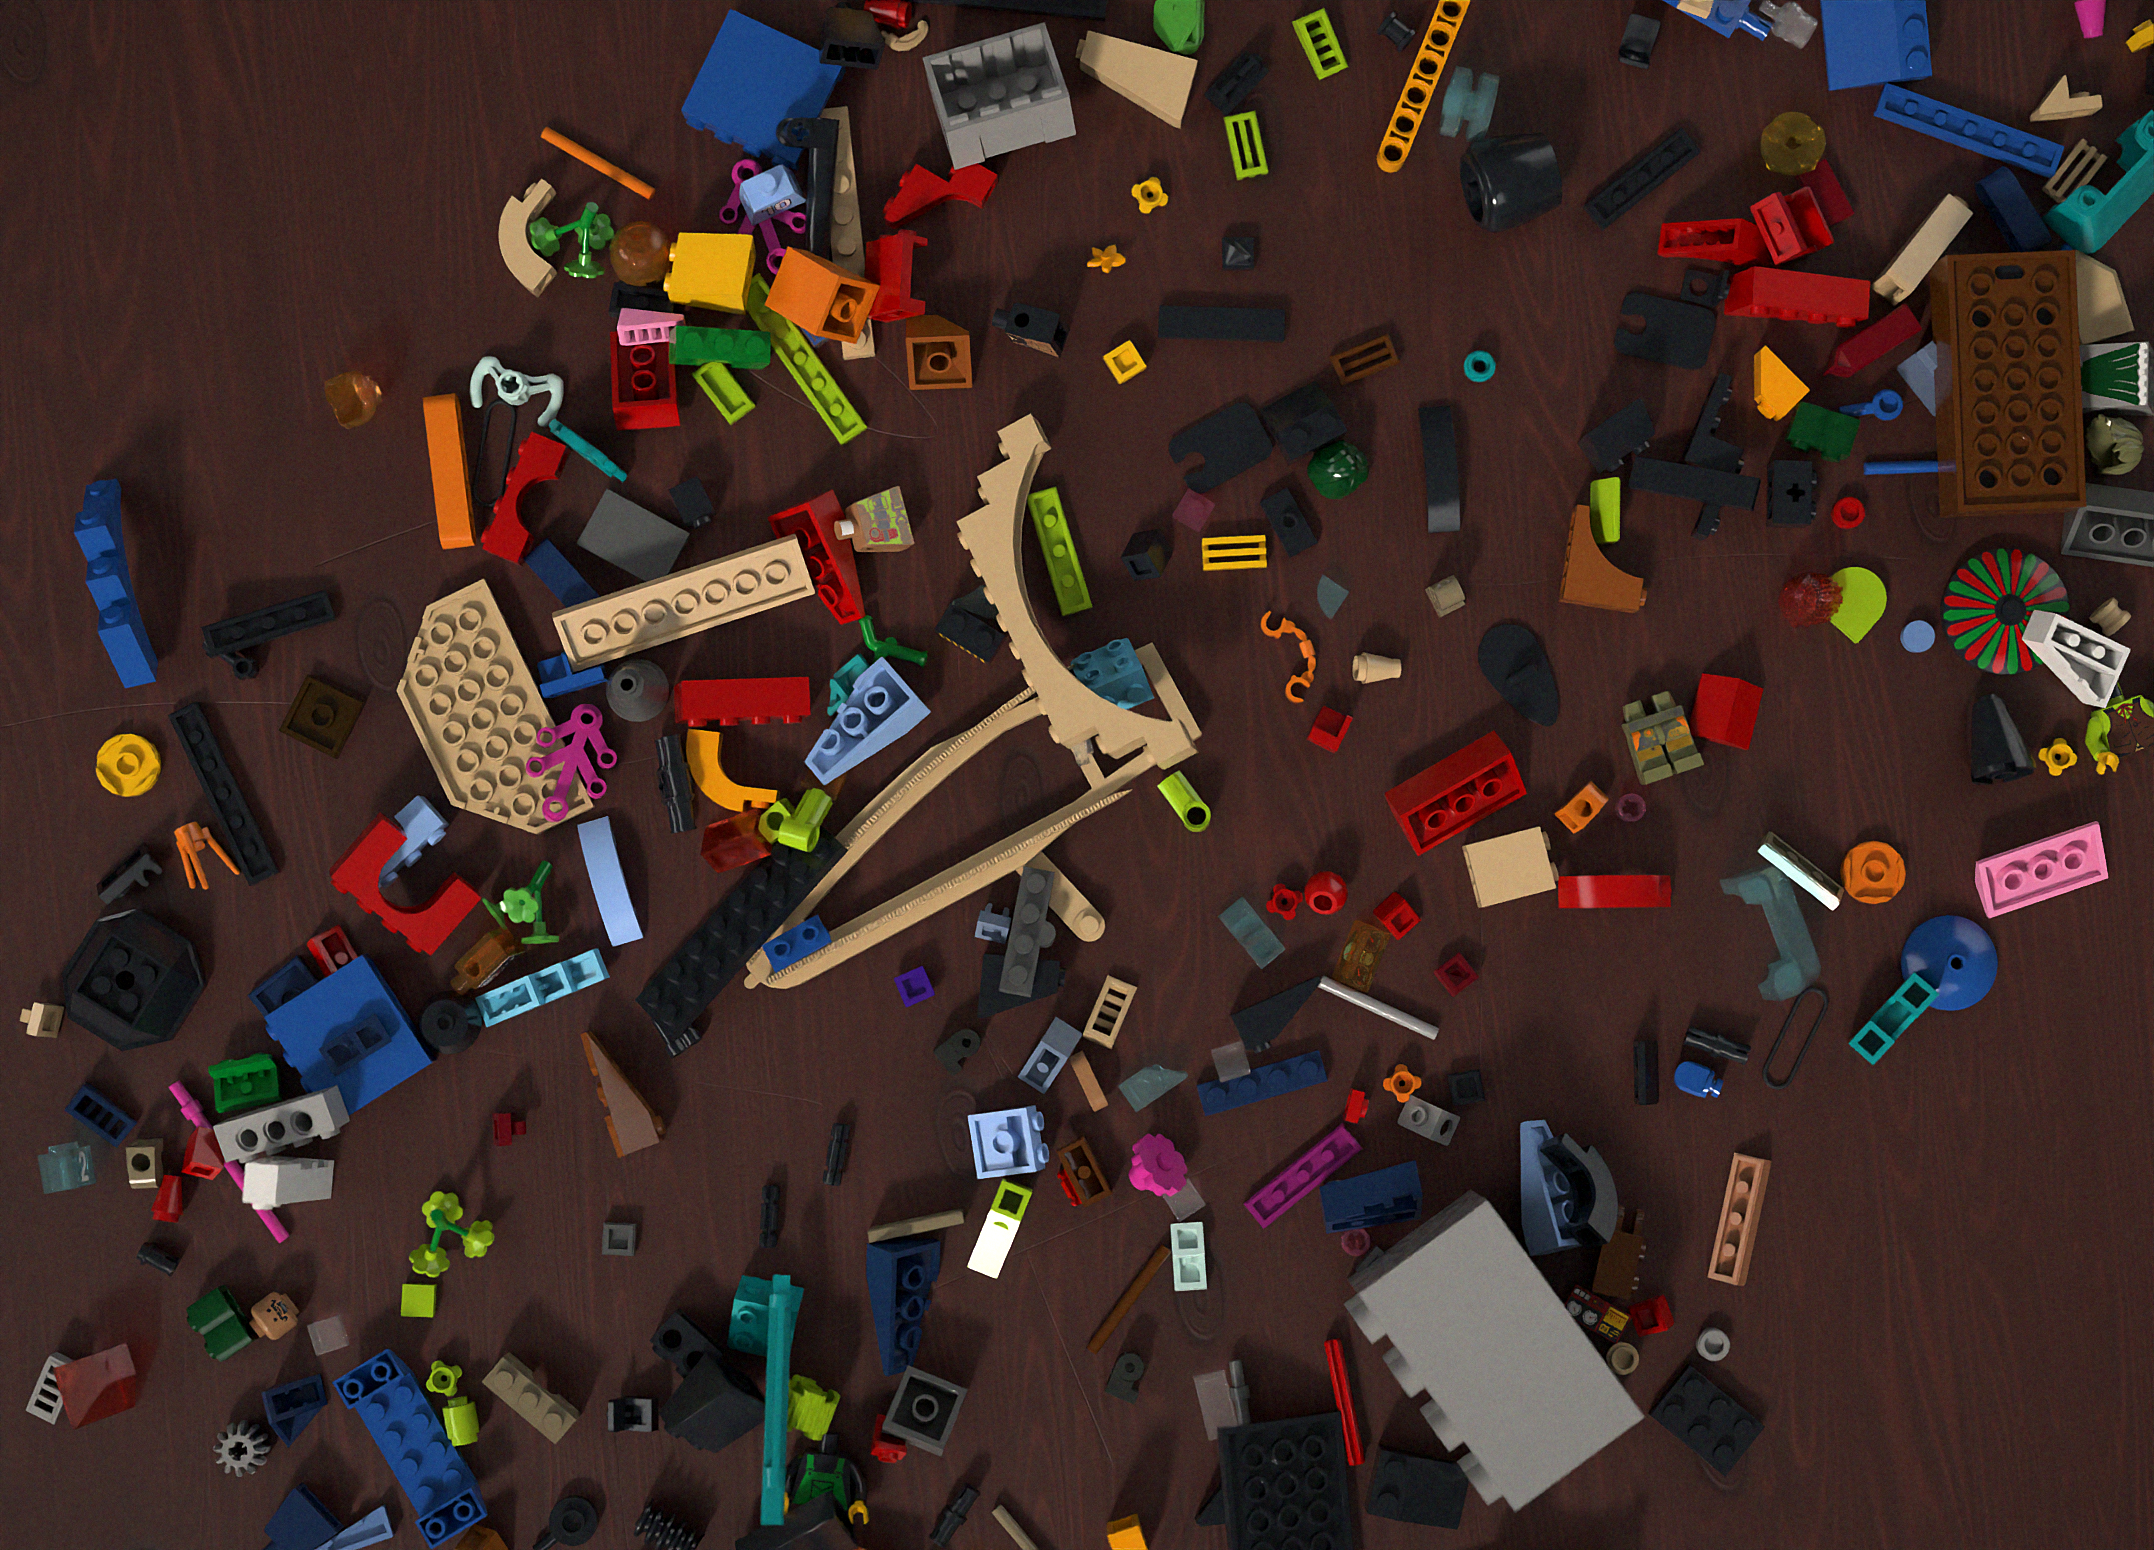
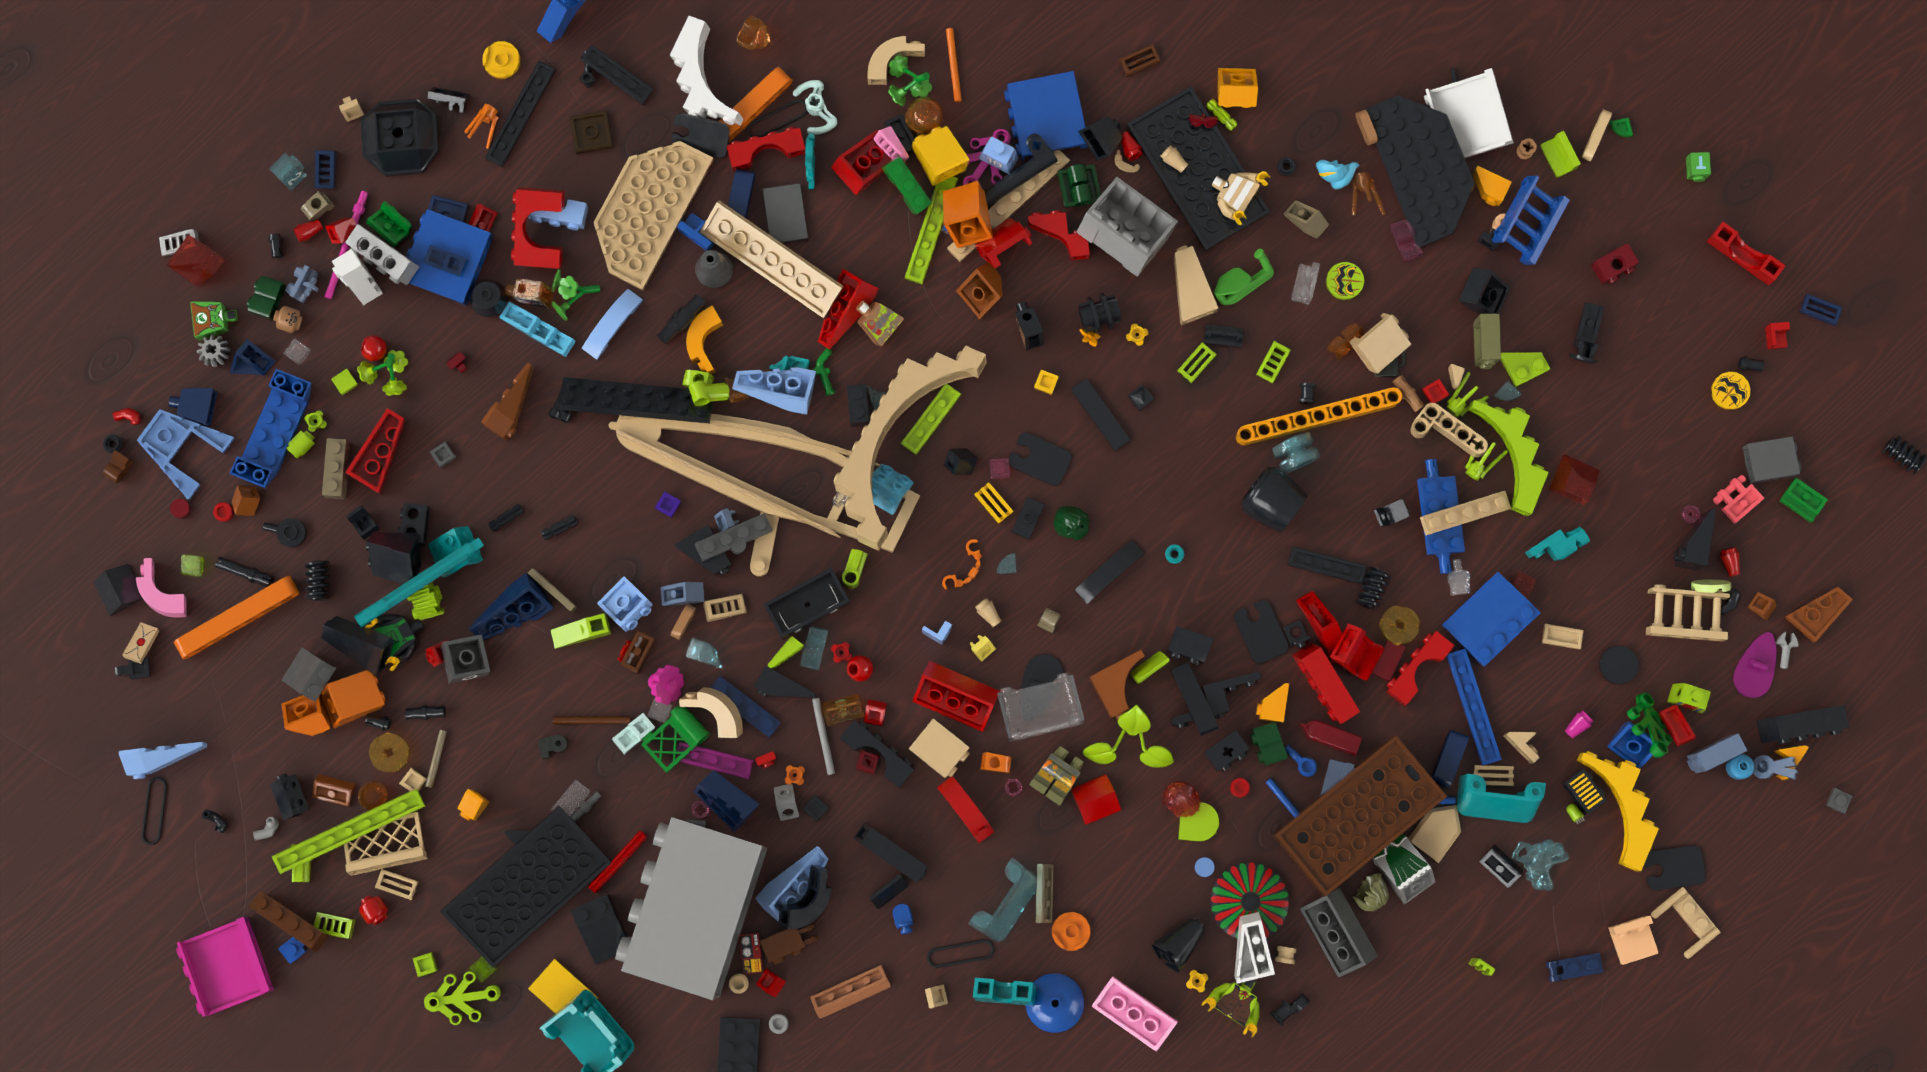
camera: 55 degrees right, 5 degrees down
(194, 1420) = (211, 319): none -> torso
(242, 1259) = (304, 285): none -> sand blue hips
(315, 507) = (688, 55): none -> white arch
(402, 1228) = (373, 348): none -> red piece
(443, 567) = (704, 134): none -> black piece
(553, 1329) = (377, 453): none -> red wedge
(573, 756) = (658, 261): dark pink plant -> none
(693, 503) = (823, 228): black brick -> none
(724, 391) = (888, 204): lime tile -> none
(734, 841) = (674, 367): clear red panel -> none
(740, 700) = (745, 320): red wedge -> none
(796, 943) = (646, 431): blue hinge -> none
(892, 119) = (1079, 185): none -> dark green plate
(960, 1045) = (652, 546): pearl dark grey leg -> none
(1088, 217) = (1108, 315): none -> black piece
(1192, 868) = (789, 608): none -> black piece
(1230, 969) = (789, 649): none -> lime slope
(1230, 1061) = (743, 683): clear tile -> none
(1232, 1180) = (686, 726): none -> green piece
(1240, 1116) = (721, 706): none -> tan arch
(1303, 422) = (1081, 489): black slope -> none
(1329, 729) = (941, 611): red panel -> none
(1339, 370) = (1132, 503): reddish brown tile -> none
(1363, 751) = (941, 636): none -> light blue panel
(1415, 962) = (858, 737): none -> black arch
(1418, 709) = (982, 648): none -> light yellow tile
(1558, 692) = (1040, 708): none -> clear windscreen
(1599, 1033) = (891, 852): none -> black slope
(1669, 587) = (1133, 722): none -> lime plant
(1716, 1045) = (927, 915): black pin -> none
(1720, 141) = (1373, 588): none -> black piece
(1830, 1111) = (936, 996): none -> tan plate
(1874, 198) = (1404, 686): none -> red arch
(1922, 249) = (1398, 726): tan slope -> none

